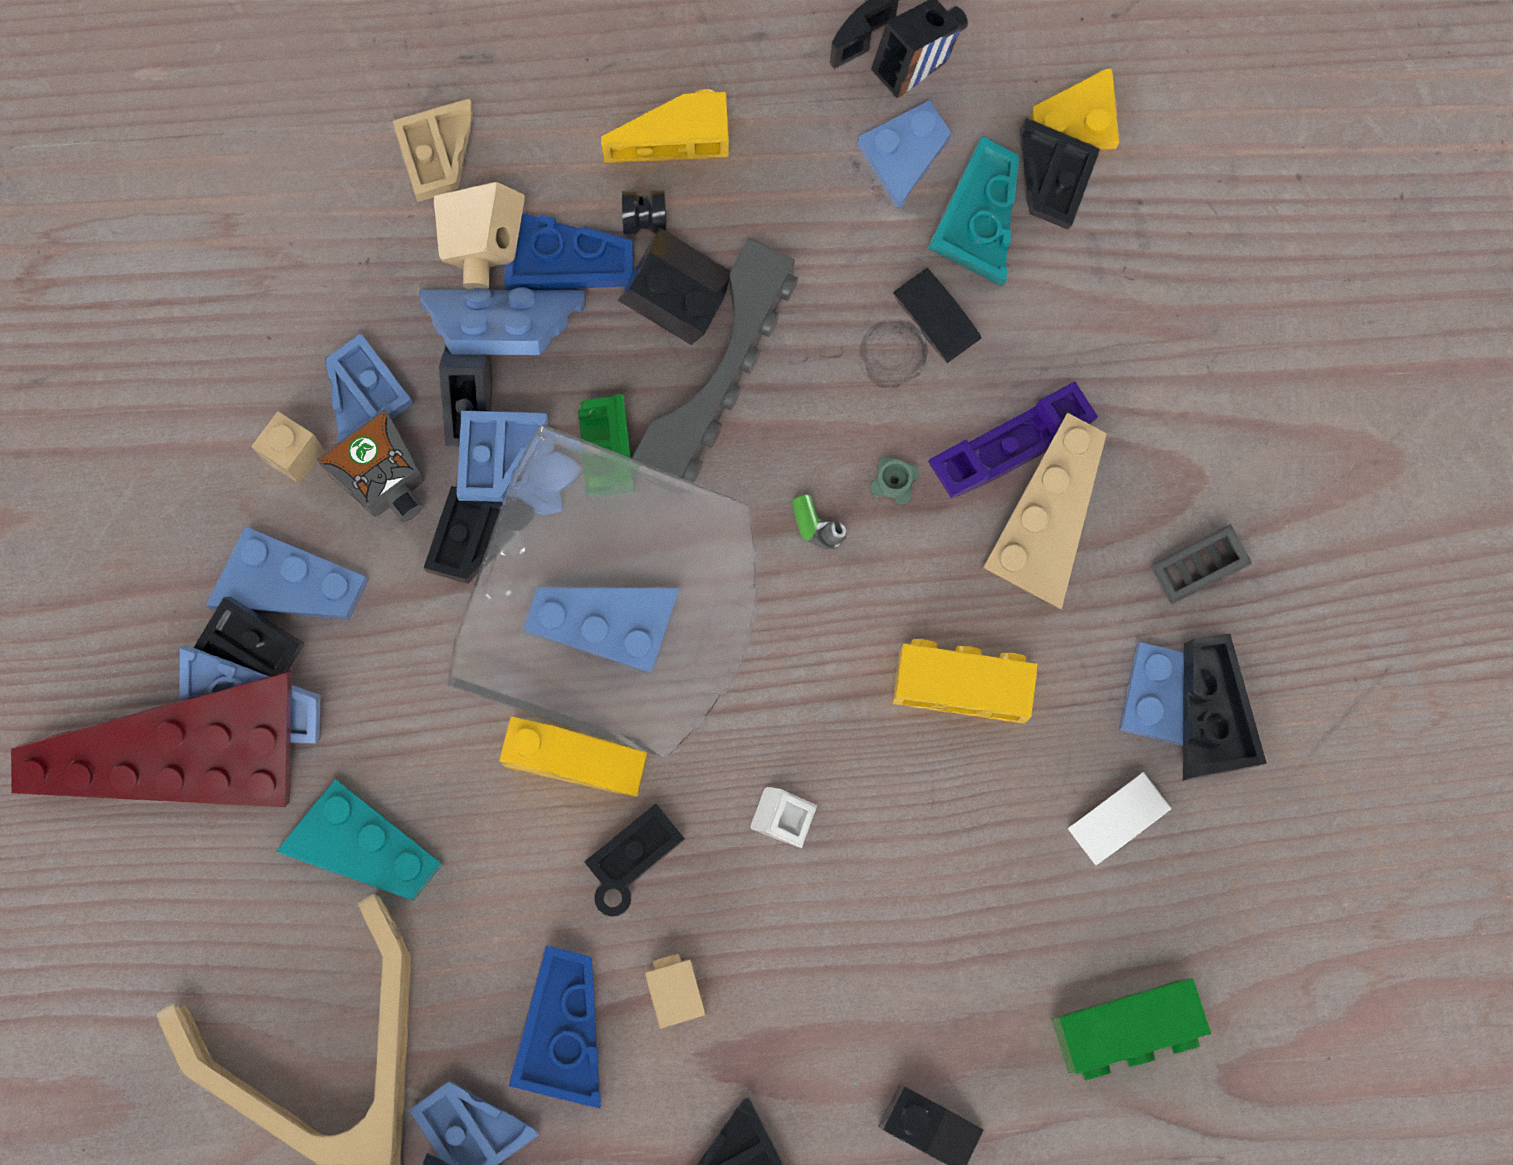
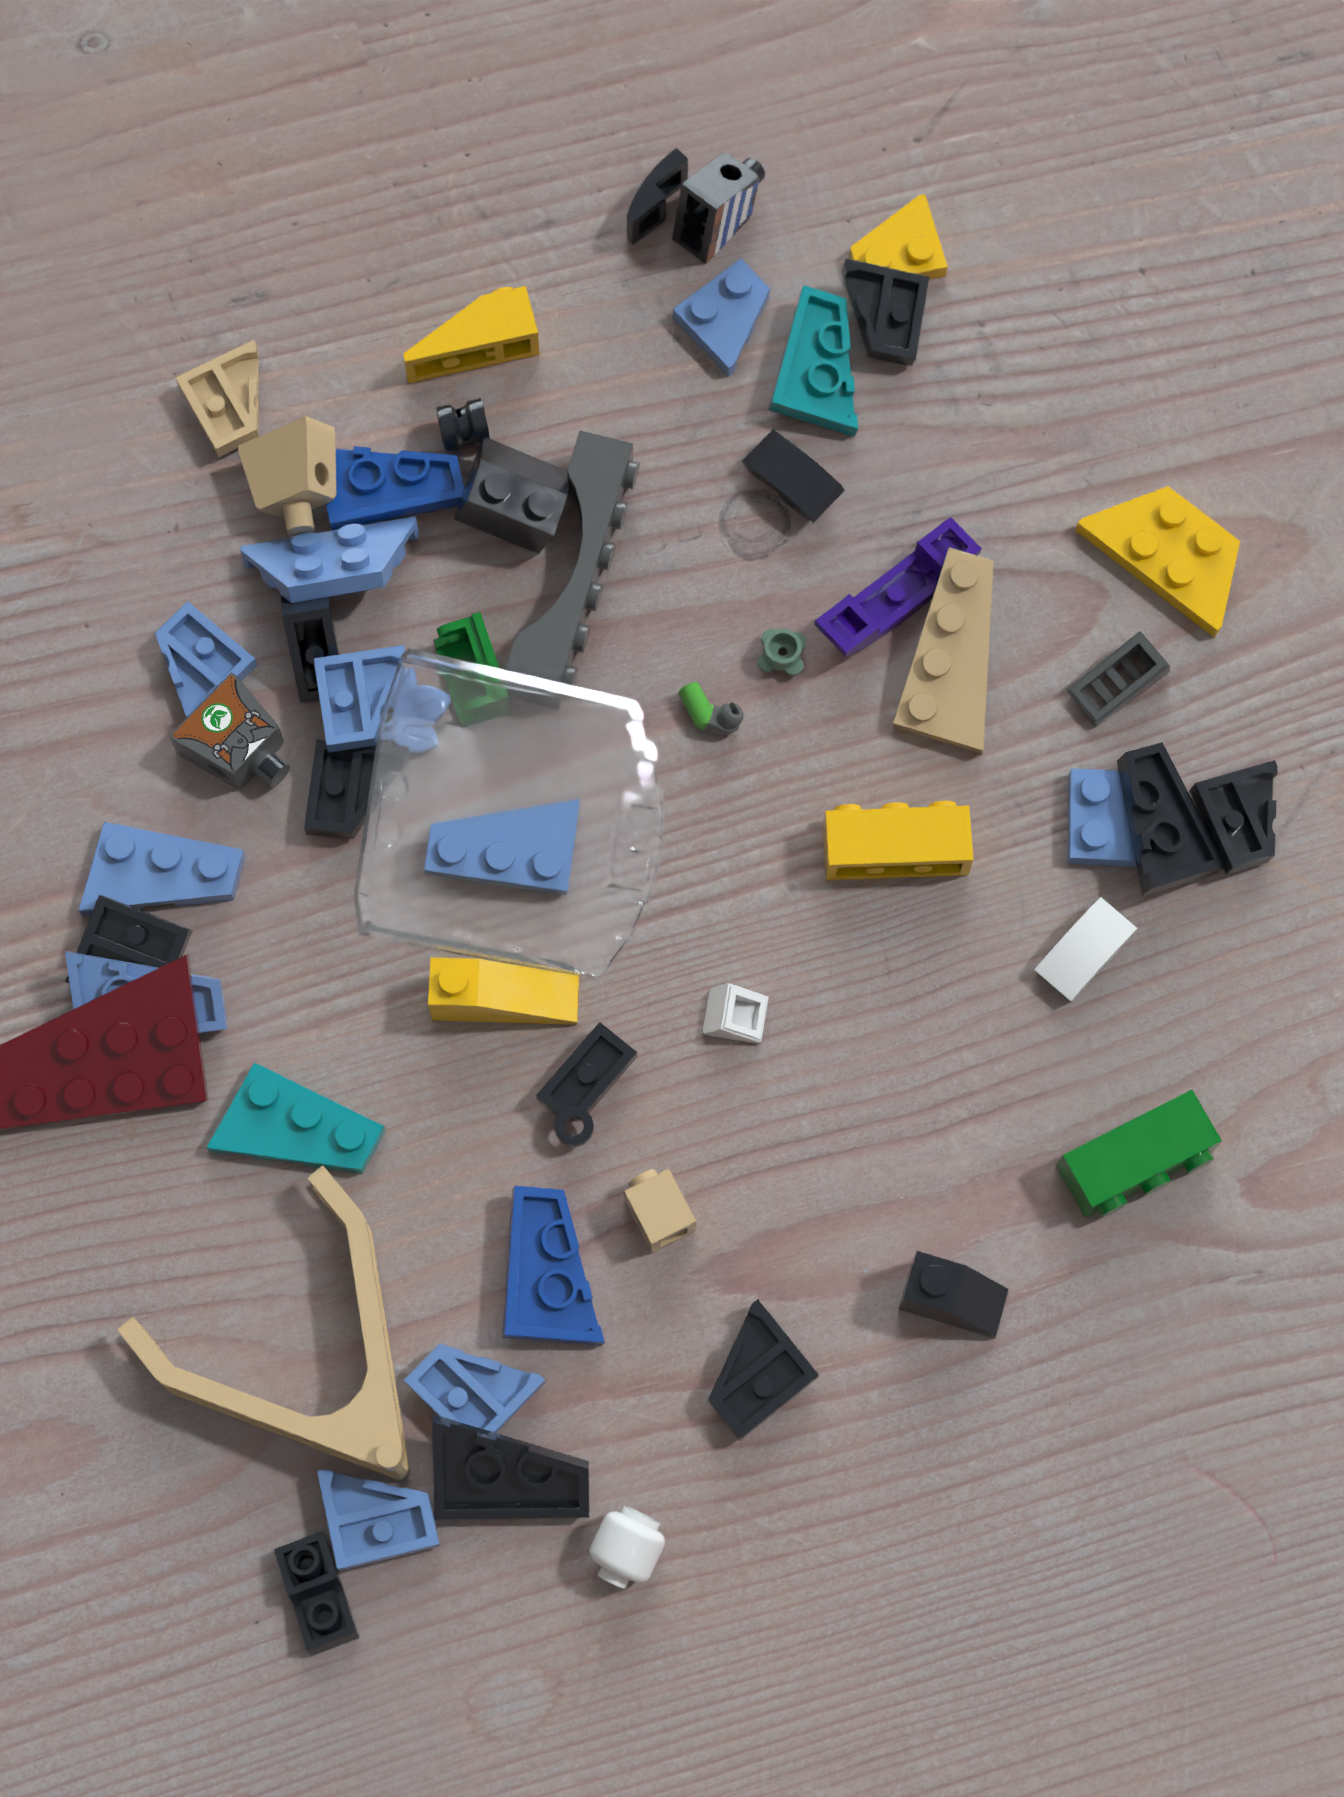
camera: 10 degrees left, 5 degrees down
(288, 447) = (134, 731): tan brick -> none
(1273, 450) = (1170, 551): none -> yellow wing
(1289, 716) = (1240, 814): none -> black wing

